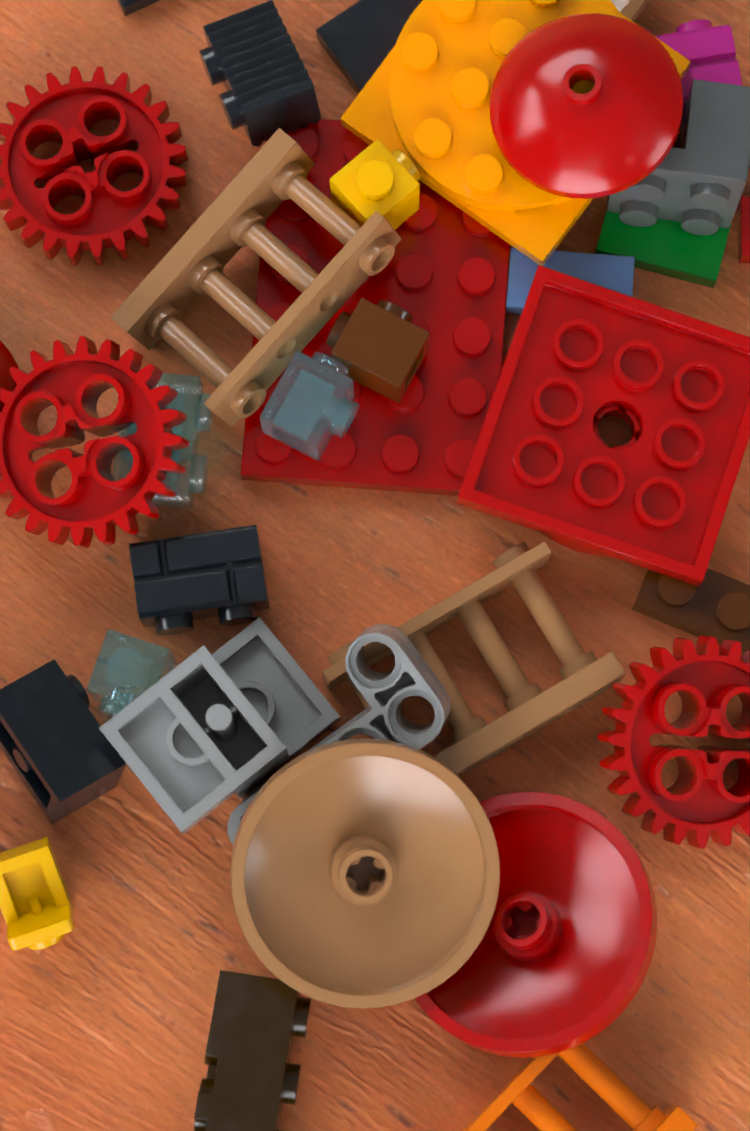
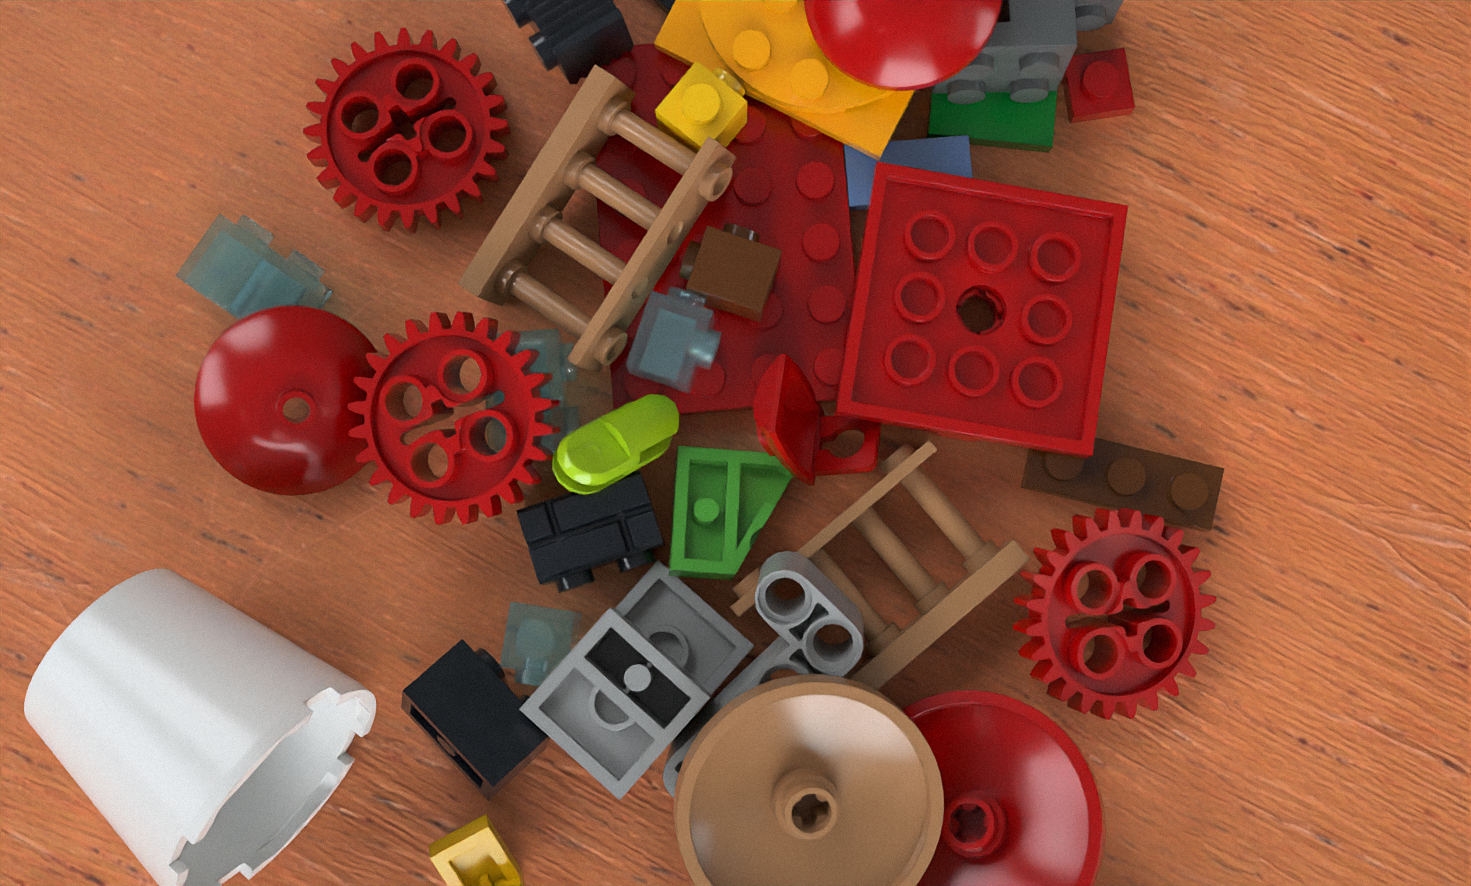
camera: 10 degrees left, 5 degrees up
(237, 495) = (615, 444): none -> lime arm
(332, 577) = (720, 508): none -> bright green wing
(418, 510) = (795, 426): none -> red piece

